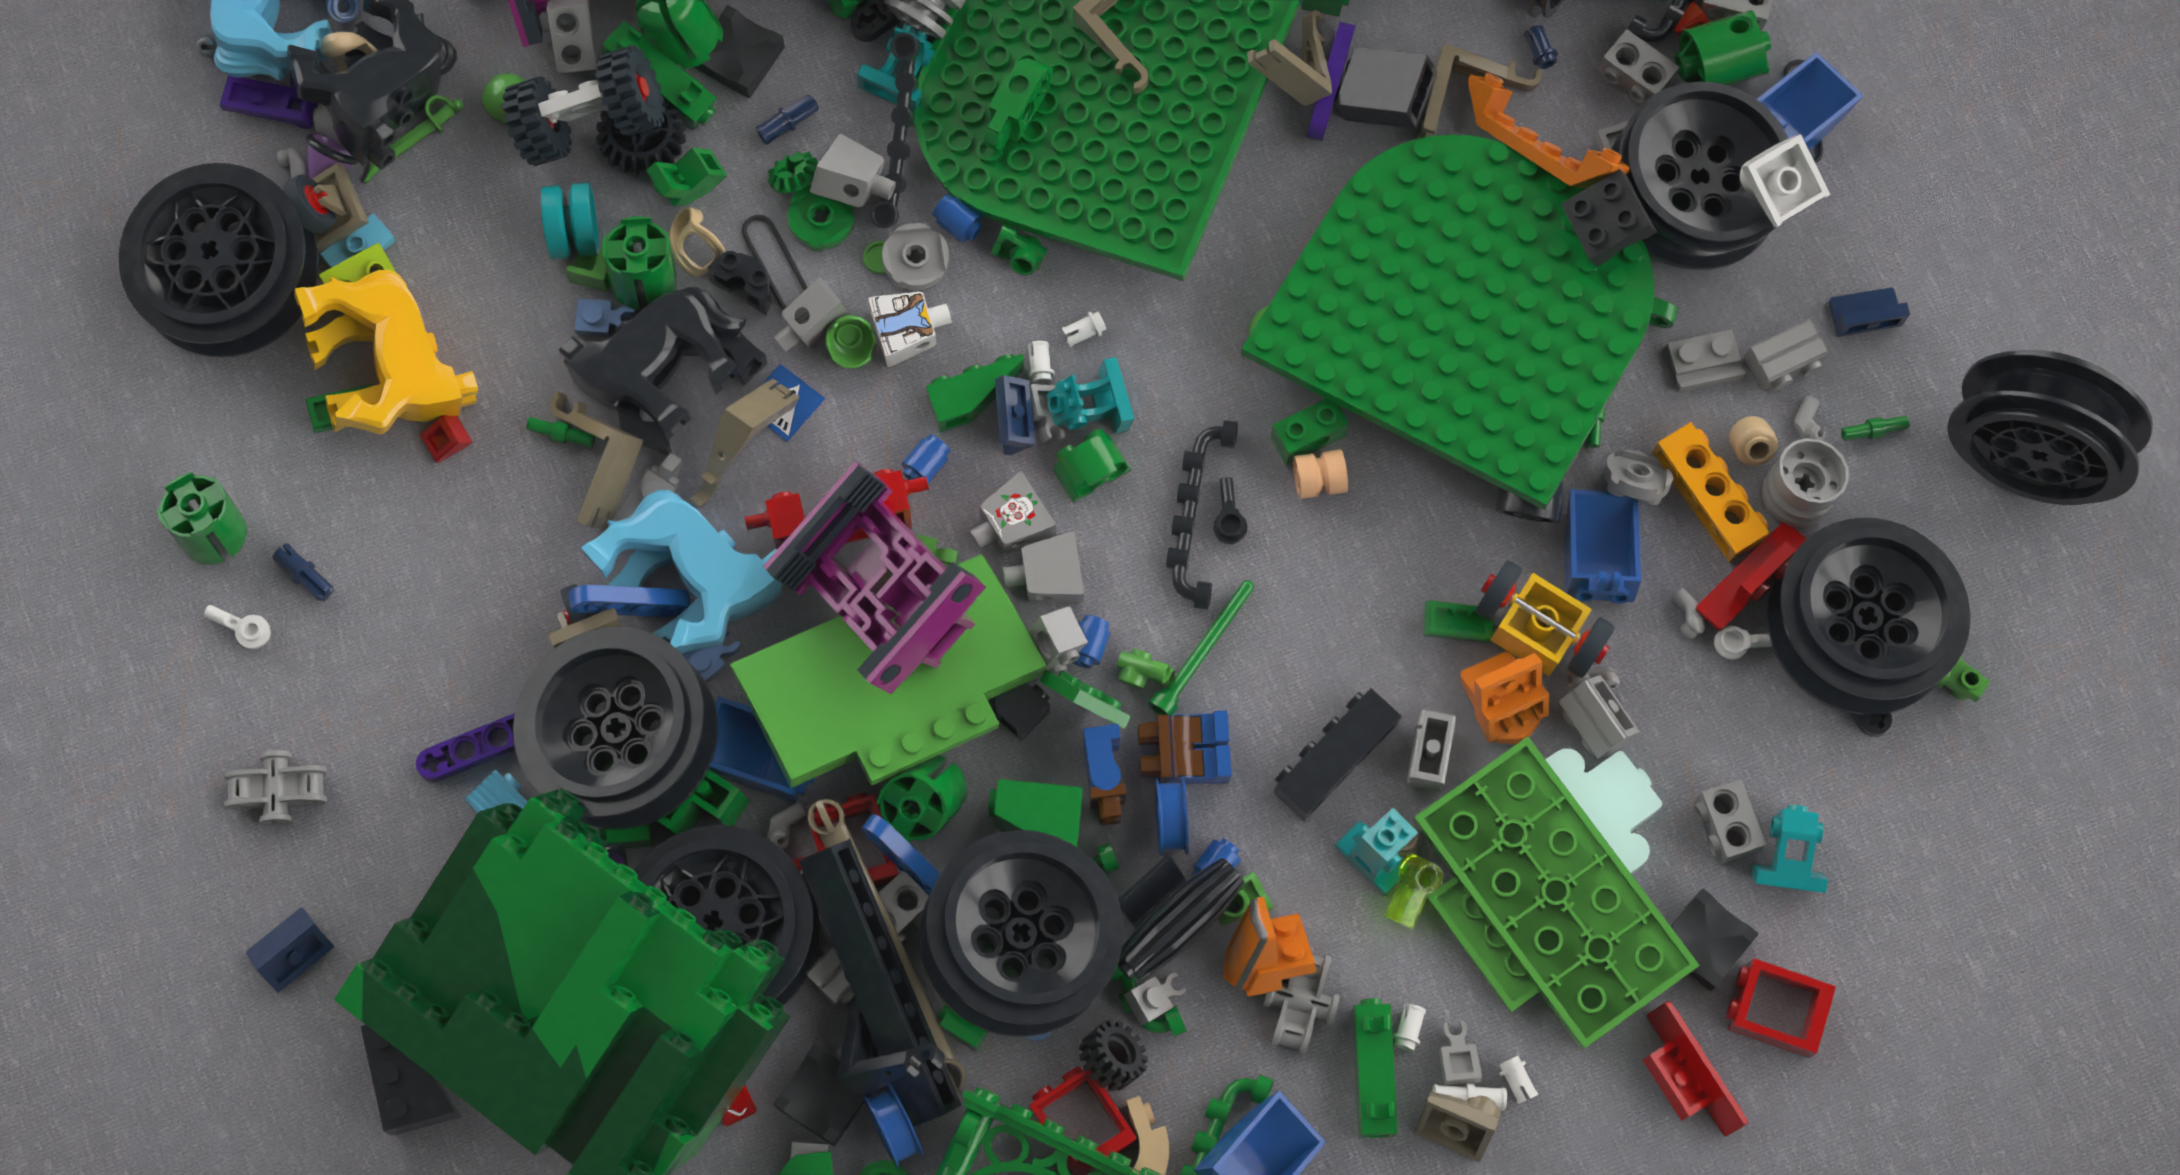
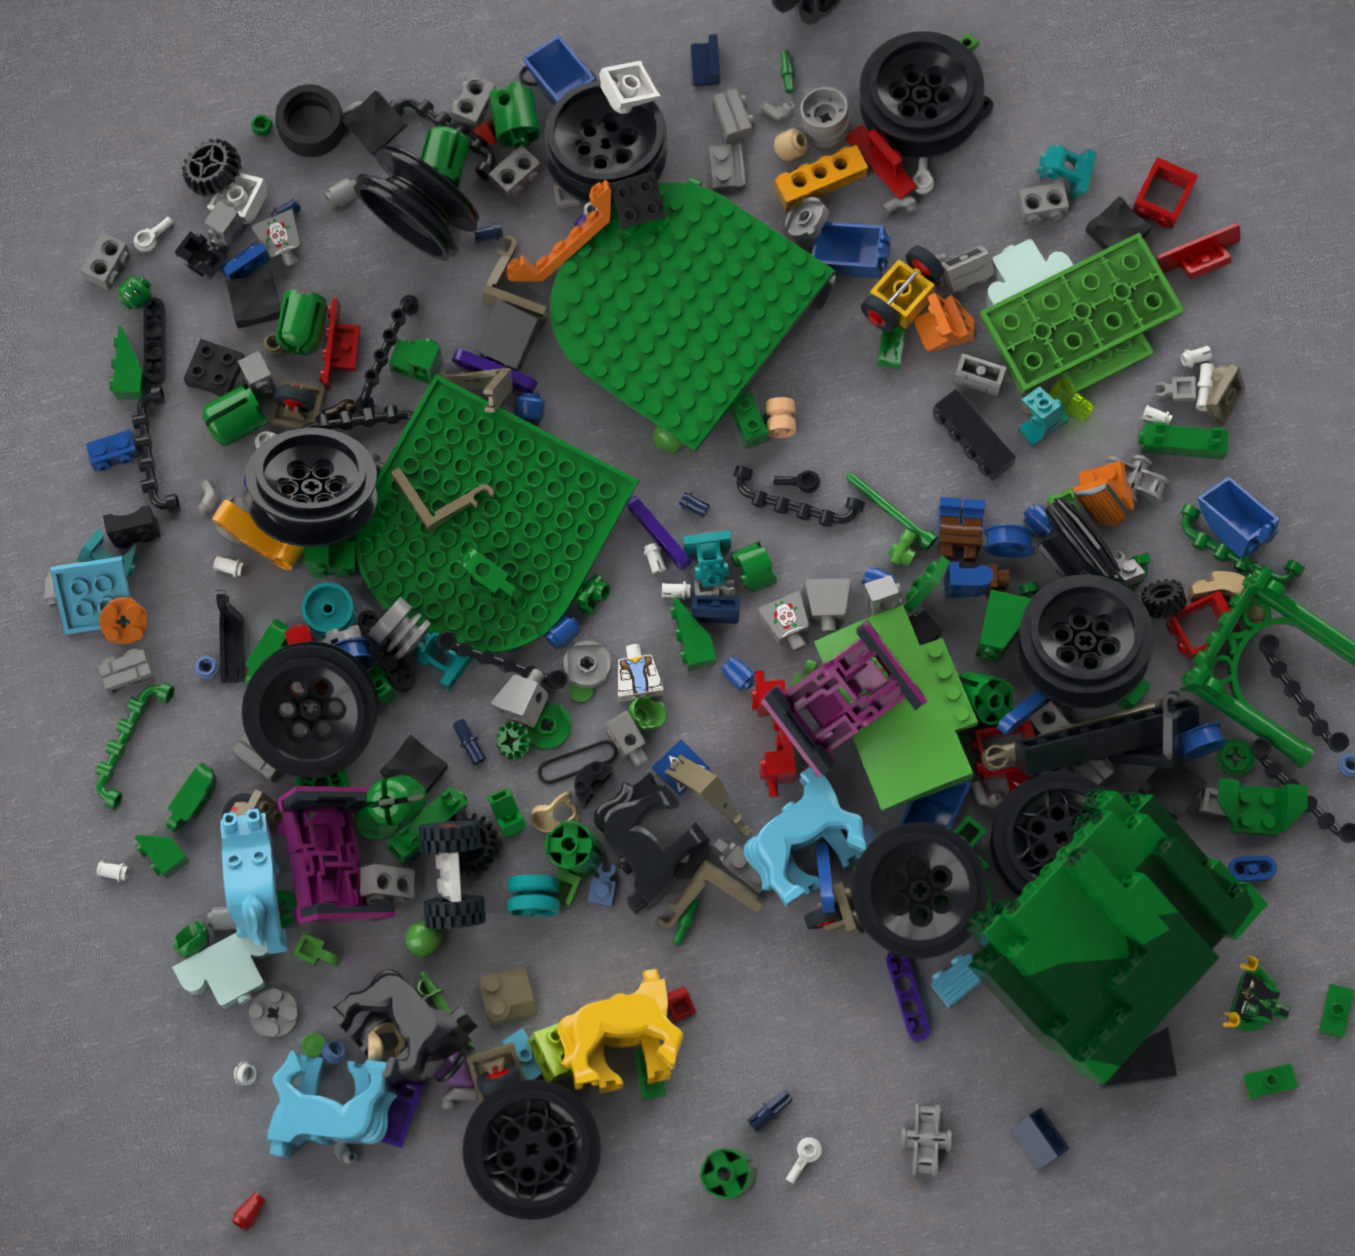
camera: 80 degrees left, 0 degrees up
(437, 212) = (507, 996): none -> dark tan slope
(1121, 328) = (658, 533): none -> dark purple beam
(1172, 372) = (694, 504): none -> dark blue pin
(1281, 132) = (529, 407): none -> blue head

